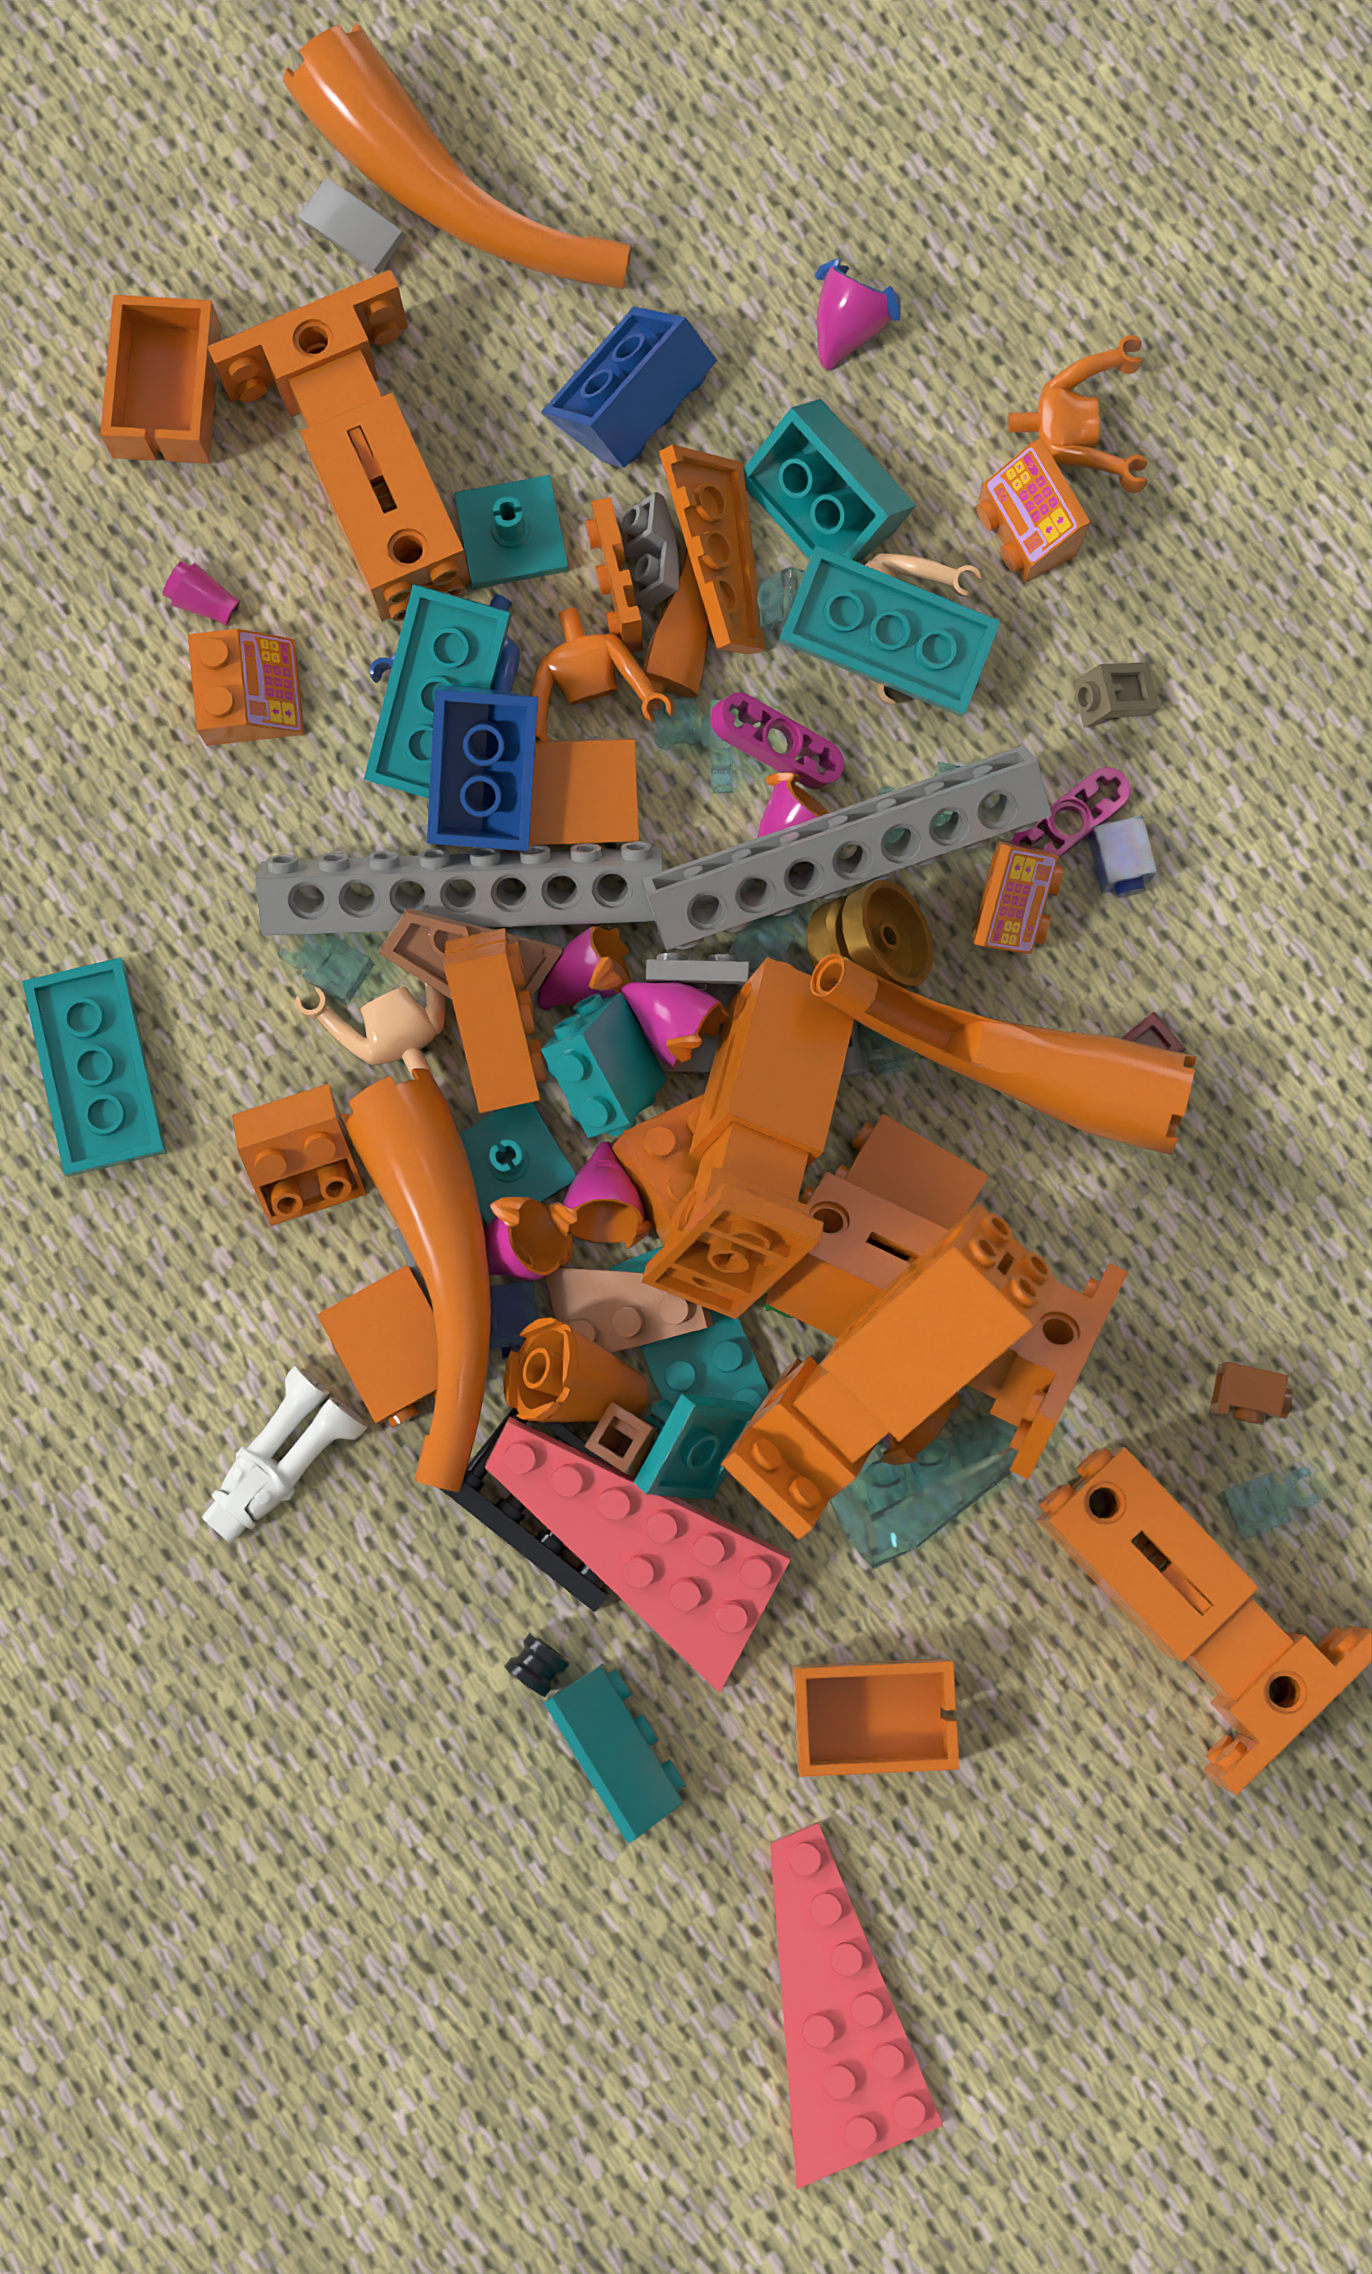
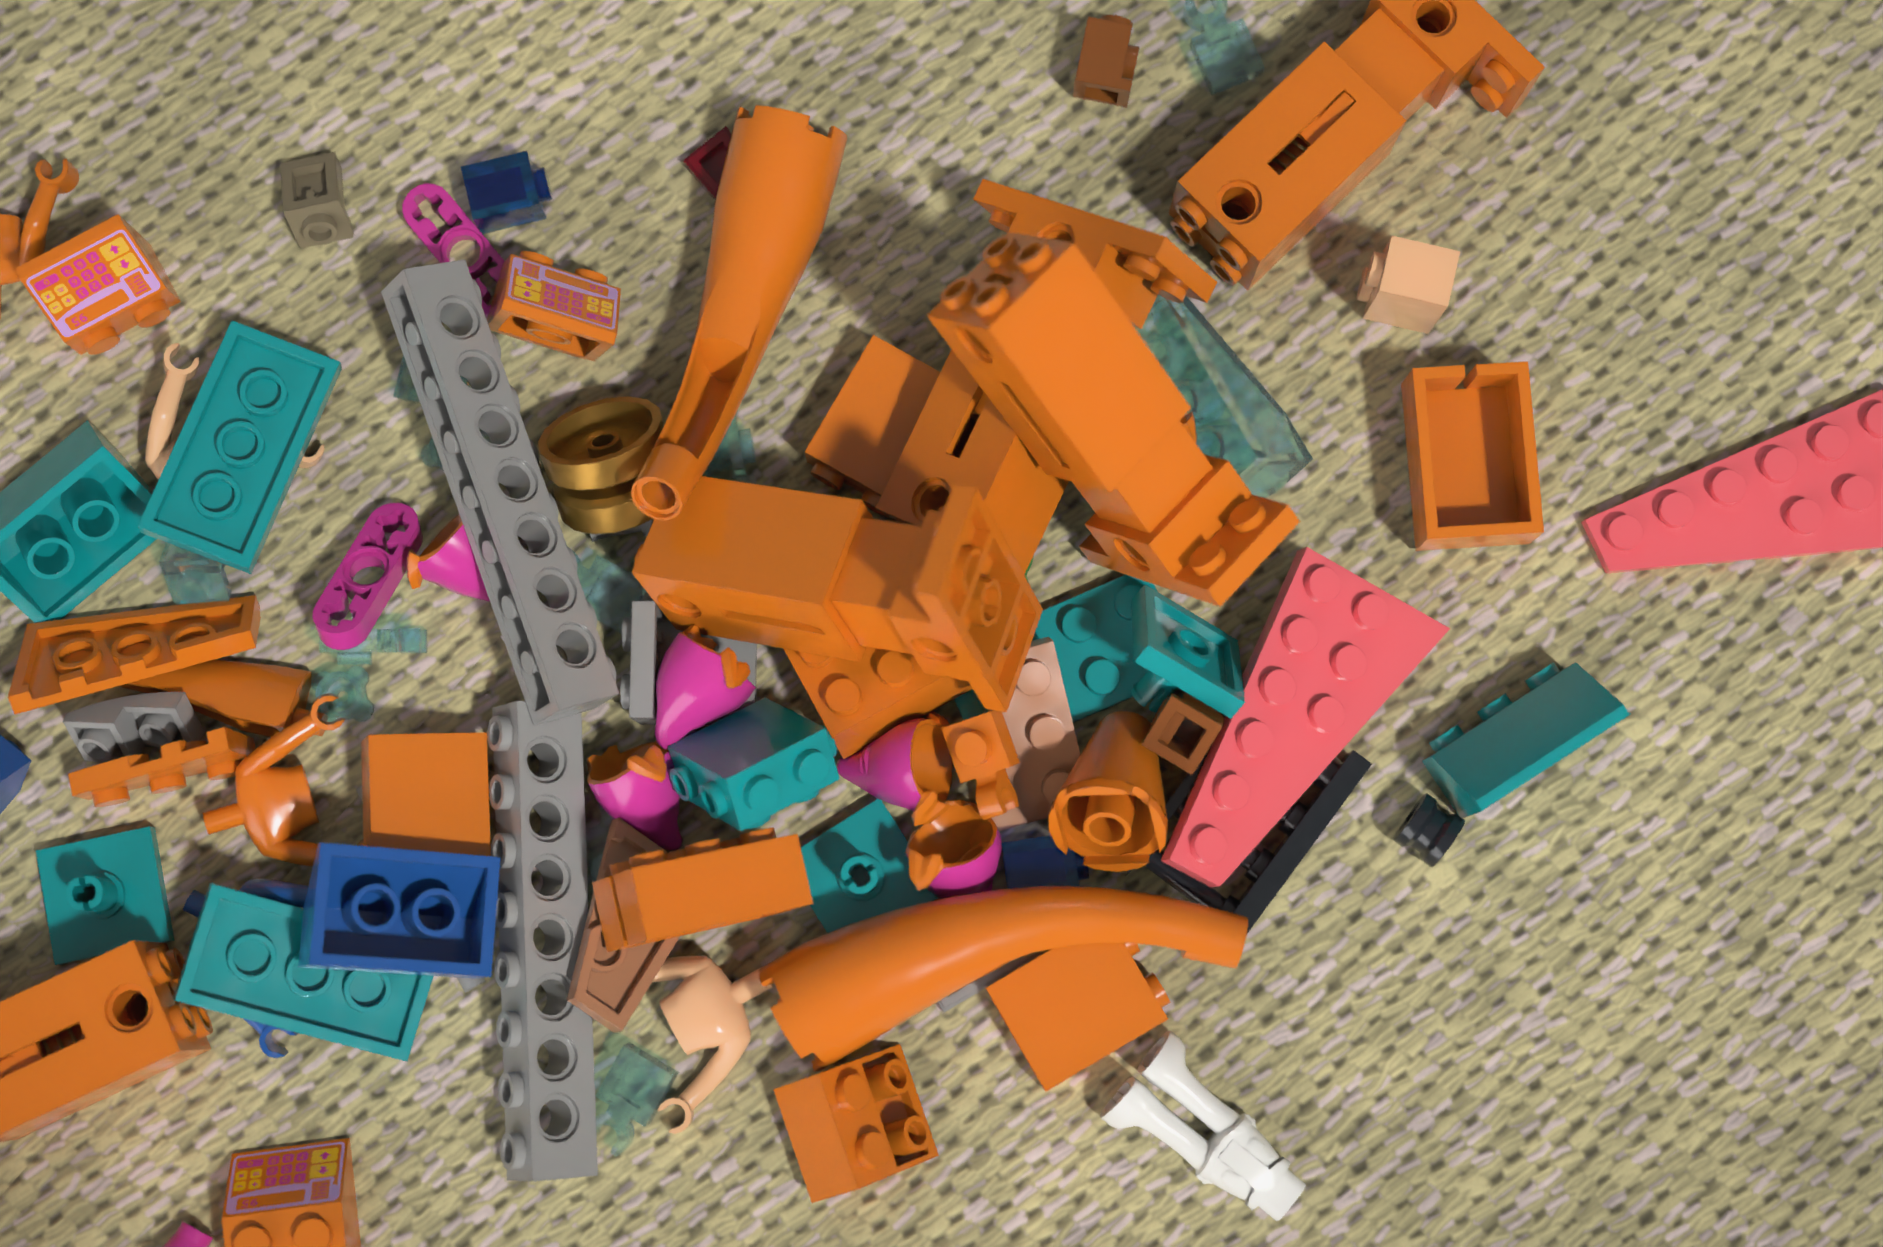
camera: 90 degrees left, 0 degrees up
(610, 1266) = (983, 751): none -> orange plate
(1035, 1663) = (1408, 284): none -> light nougat brick

